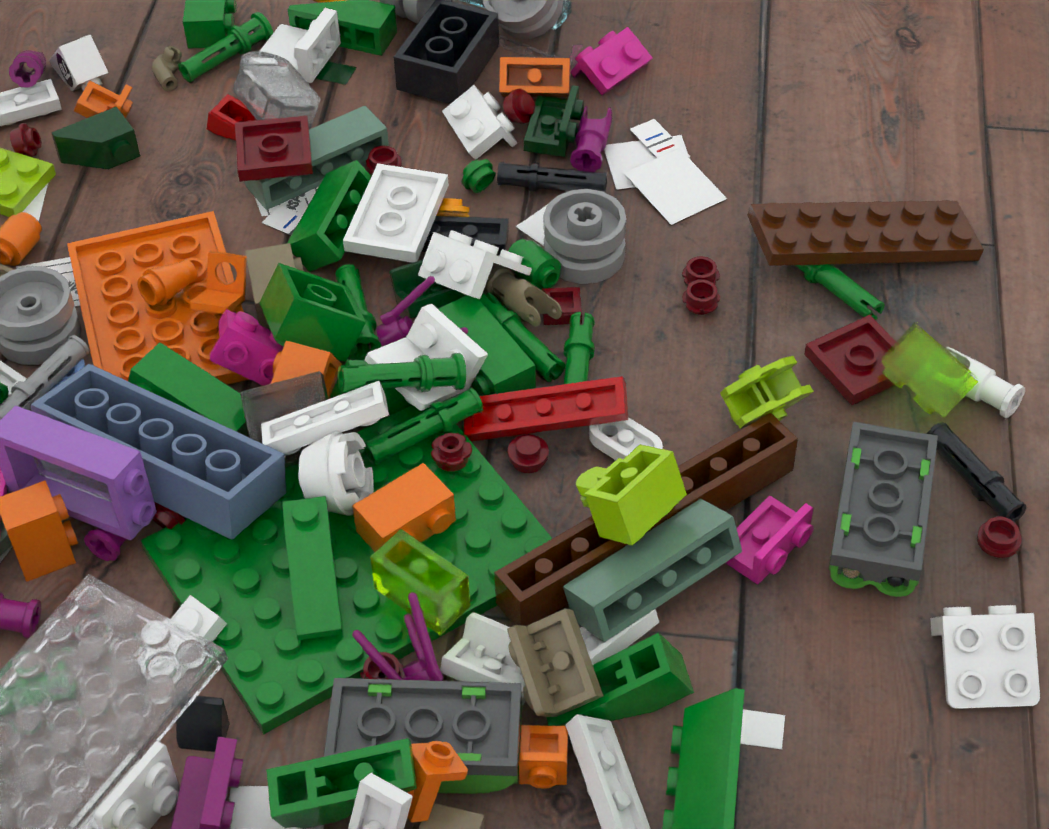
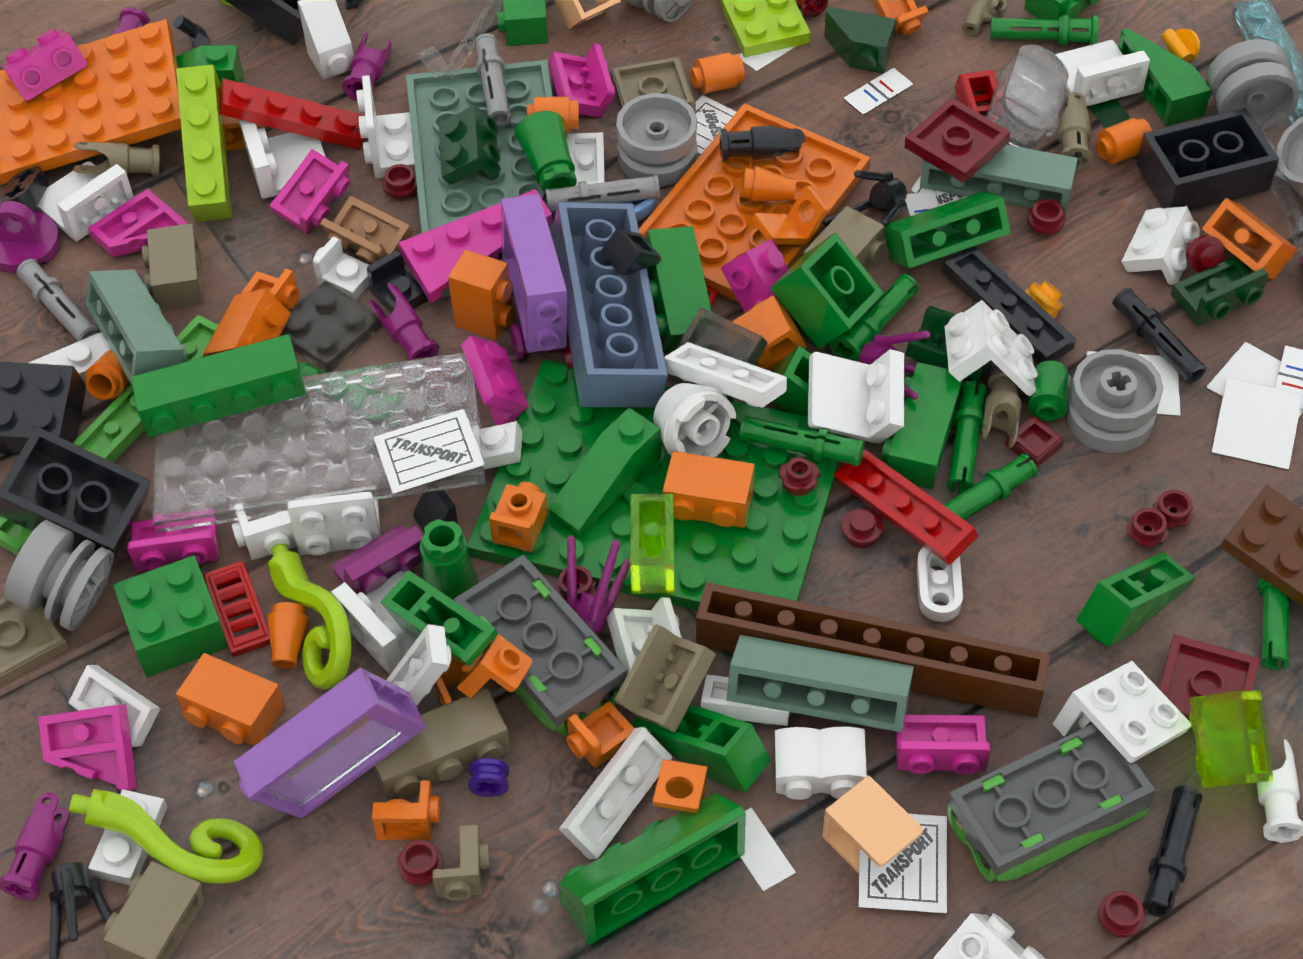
camera: 50 degrees right, 5 degrees up
(120, 257) = (759, 142): none -> black piece
(137, 581) = (495, 379): none -> dark pink bracket
(139, 395) = (629, 252): none -> black slope
(152, 170) = (878, 91): none -> white sticker
(158, 672) = (428, 451): none -> white sticker
(258, 228) = (885, 195): none -> black plant
(266, 741) = (447, 559): none -> green plant
(286, 658) = (519, 516): none -> orange brick
(333, 94) = (1075, 131): none -> dark tan piece
(373, 78) = (1121, 140): none -> orange brick
(396, 213) = (989, 263): white plate -> none
(420, 373) = (831, 398): green pin -> none
(478, 175) = (1102, 285): green plate -> none
(591, 141) = (1233, 328): magenta piece -> none
(632, 493) = (851, 613): lime brick -> none
(652, 728) = (680, 786): none -> orange bracket
(713, 624) = (819, 761): none -> white brick
(752, 337) = (1132, 598): none -> green slope
(764, 392) = (1068, 636): lime hinge -> none
(808, 634) = (871, 822): none -> light nougat piece
(840, 638) = (914, 877): none -> white sticker
(855, 405) = (1126, 711): none -> white bracket

